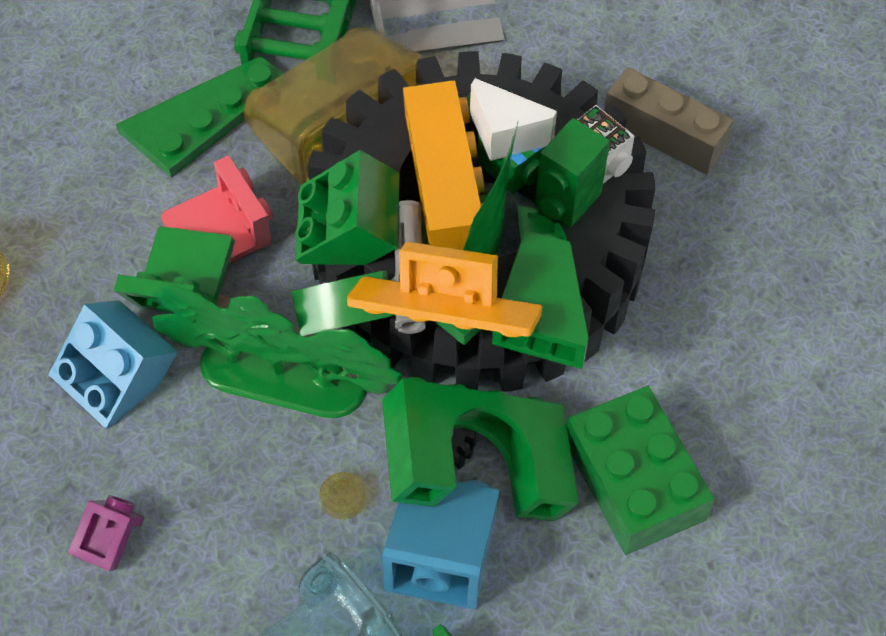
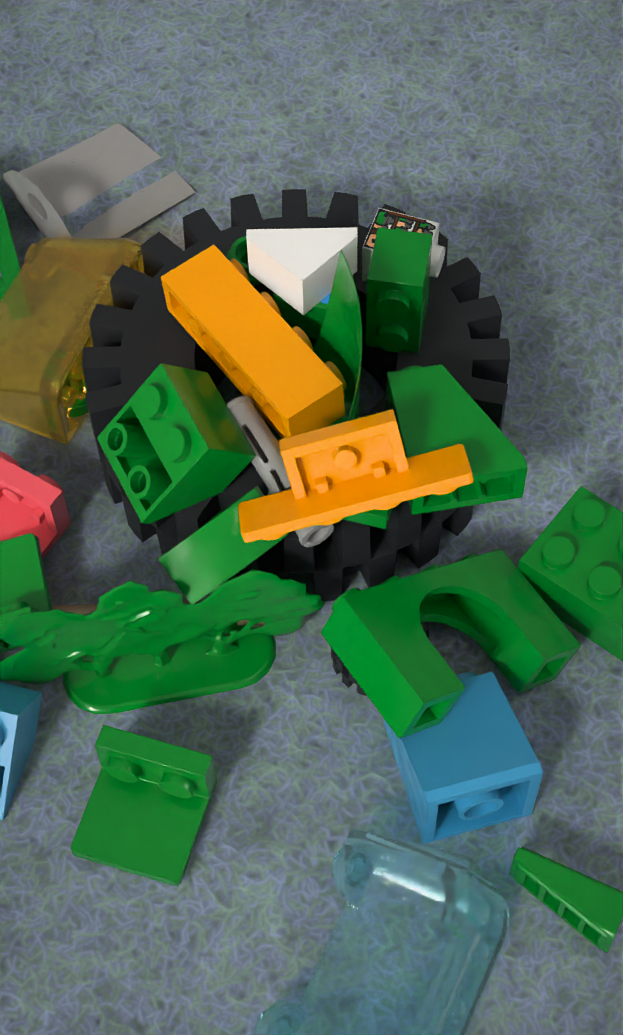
camera: 25 degrees left, 0 degrees up
(105, 531) = (76, 937): magenta bracket -> none
(203, 466) = (145, 806): none -> green bracket
(342, 495) = (317, 762): clear yellow tile -> none
(530, 219) = (376, 365): green tile -> none
(670, 120) = (455, 198): dark tan brick -> none

